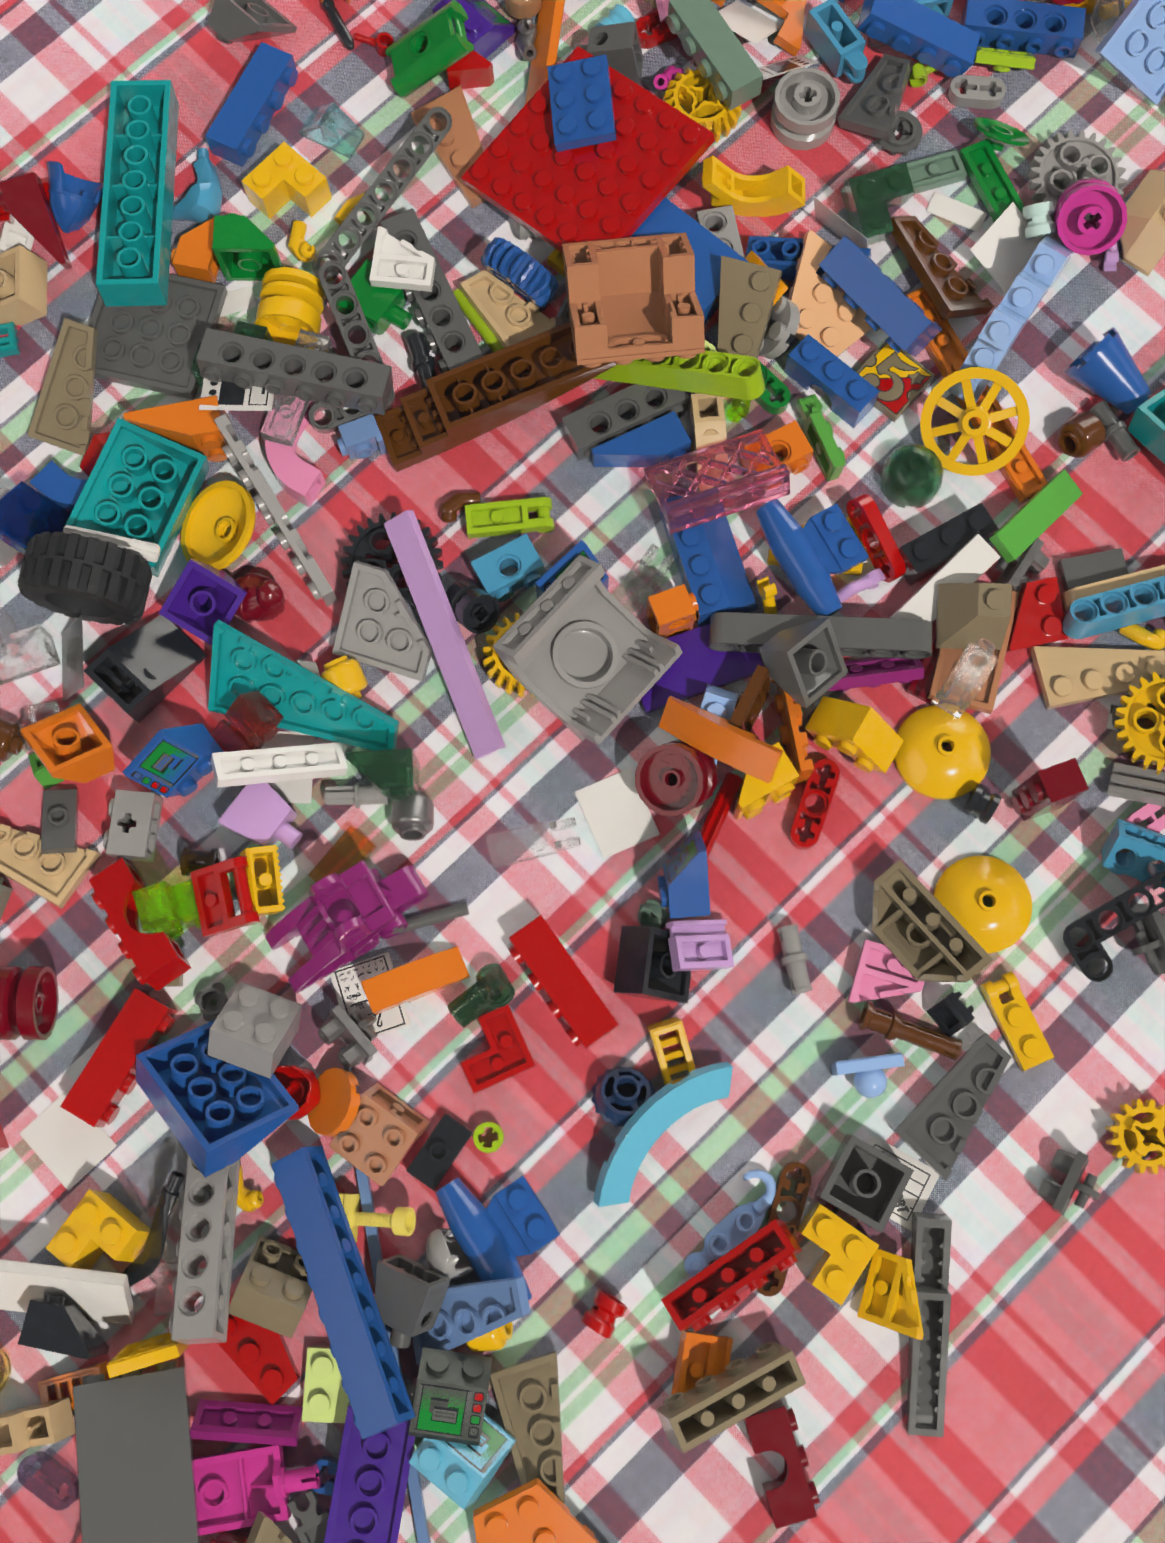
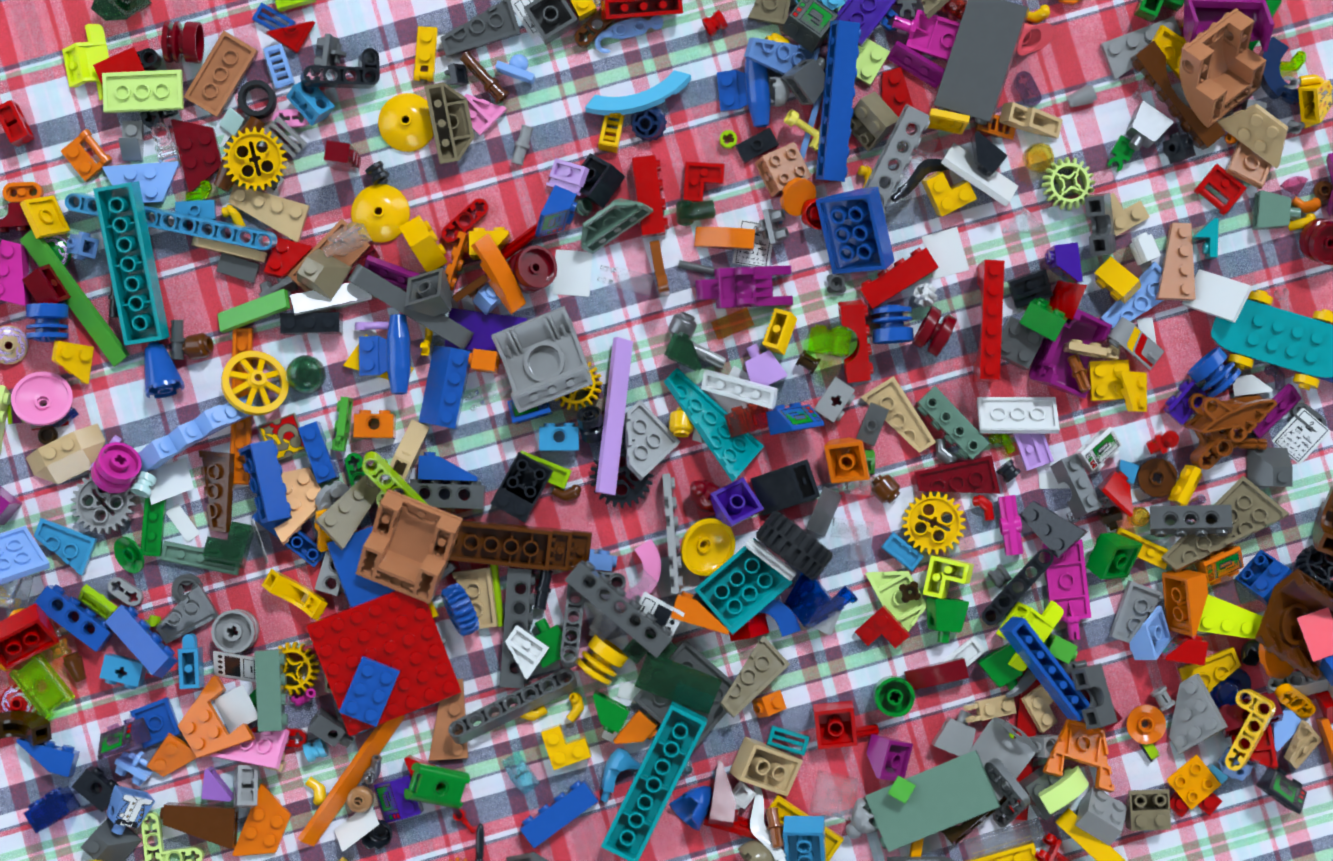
camera: 160 degrees left, 10 degrees up
(30, 372) = (769, 704): none -> orange bracket
(65, 1053) = (925, 295): none -> white gear
(92, 978) = (892, 325): none -> blue wheel
(164, 327) = (678, 683): none -> clear green tile
(215, 898) = (807, 332): red plate -> none
(254, 1029) = (820, 253): light grey brick -> none
(476, 863) = (661, 277): none -> dark orange beam
(523, 471) = (522, 487): none -> black slope
(596, 909) = (612, 222): none -> sand green wedge
(725, 496) = (418, 405): clear pink fence -> none
(868, 520) = (348, 346): red beam -> none
(1090, 108) = (70, 545): none -> dark azure wing

